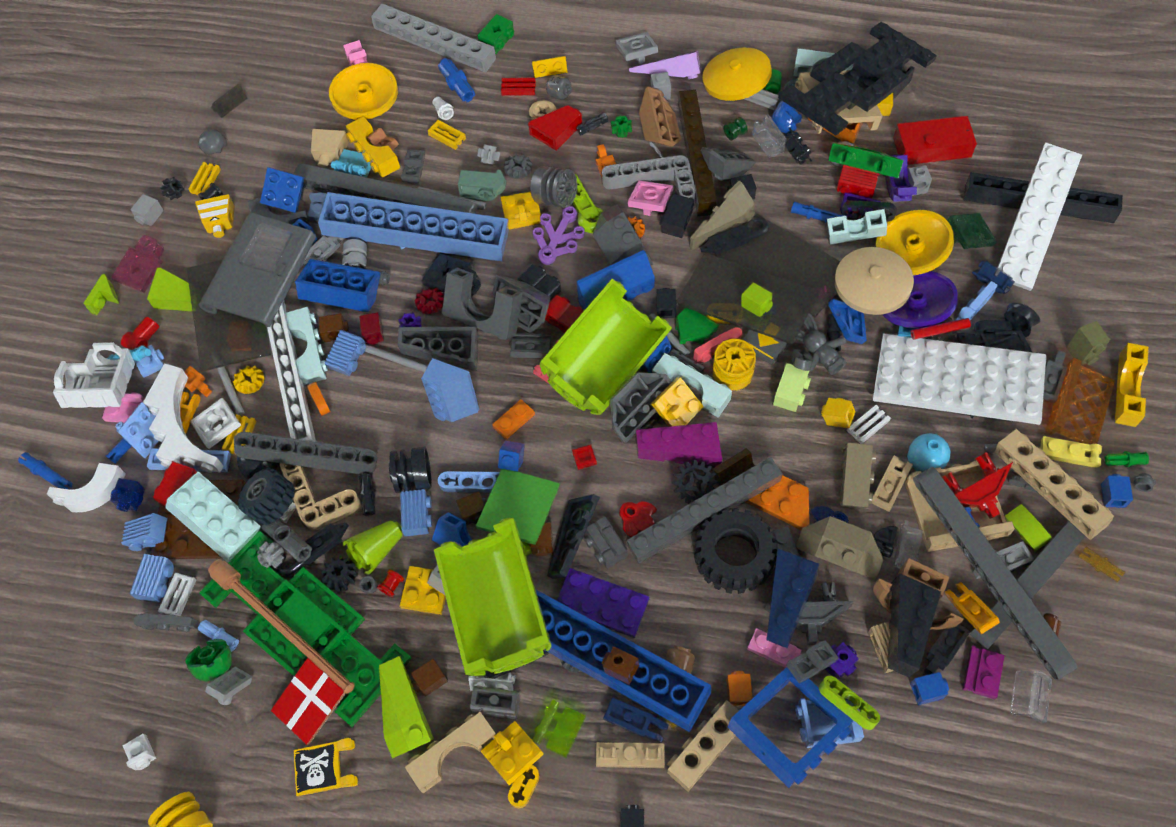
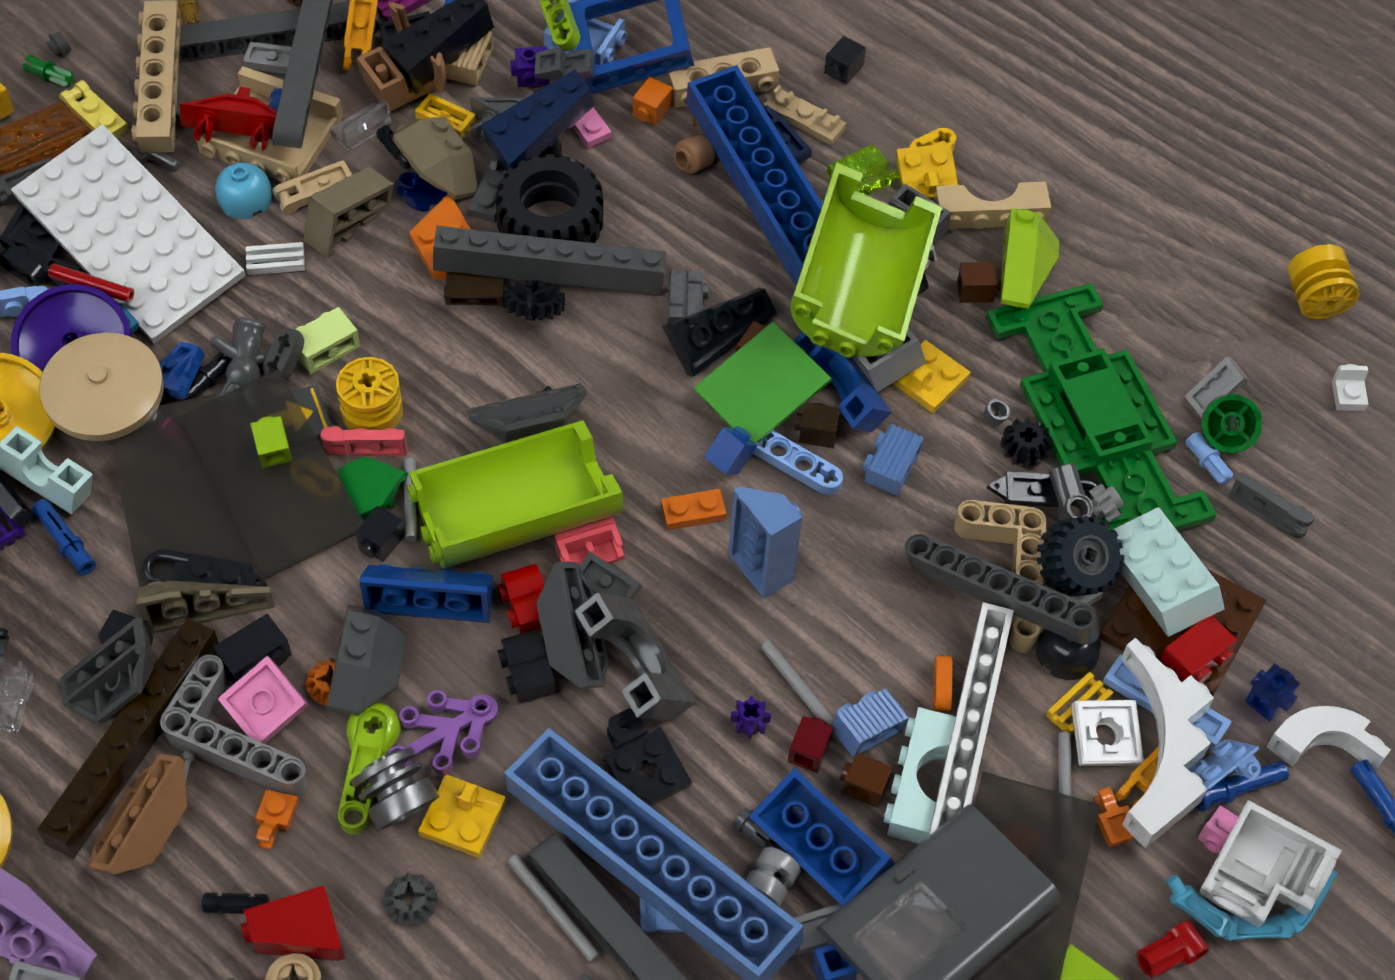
camera: 155 degrees left, 5 degrees down
(144, 532) = (1264, 622): medium blue brick -> none
(151, 363) = (1159, 896): light blue bracket -> none
(152, 578) = (1273, 567): medium blue brick -> none
(179, 593) = (1231, 553): white tile -> none
(243, 385) = (1038, 768): yellow gear -> none
(316, 685) = (1134, 330): flag -> none
(319, 768) = (1140, 271): flag -> none
(367, 495) = (943, 517): black pin -> none
(373, 545) = (966, 444): lime cone -> none
(390, 583) = (968, 400): red bush -> none
(409, 470) = (870, 498): black wheel -> none
(432, 306) = (694, 758): dark red gear -> none
(447, 344) = (726, 651): dark grey wedge -> none
(481, 185) = (495, 881): sand green piece -> none
(488, 154) = (443, 940): light grey gear -> none
(584, 457) = (637, 414): red tile -> none
(604, 602) = (732, 253): dark purple plate -> none
(620, 665) = (767, 139): reddish brown brick -> none
(621, 126) = (206, 853): green gear -> none
(639, 520) = (627, 312): red plate -> none
(662, 82) = (75, 892): light grey brick -> none
(677, 404) = (480, 392): yellow hinge -> none
(681, 444) = (511, 349): magenta wedge -> none
(687, 361) = (418, 446): dark grey axle -> none
(714, 395) = (427, 385): light aqua arch -> none
(736, 128) = (39, 741): dark green wheel -> none
(838, 412) = (300, 279): yellow brick -> none
(856, 584) = (425, 111): none -> yellow tile
(886, 535) = (371, 149): black tile -> none
(1028, 527) = (222, 70): lime slope -> none
(1116, 491) = (97, 49): blue brick -> none

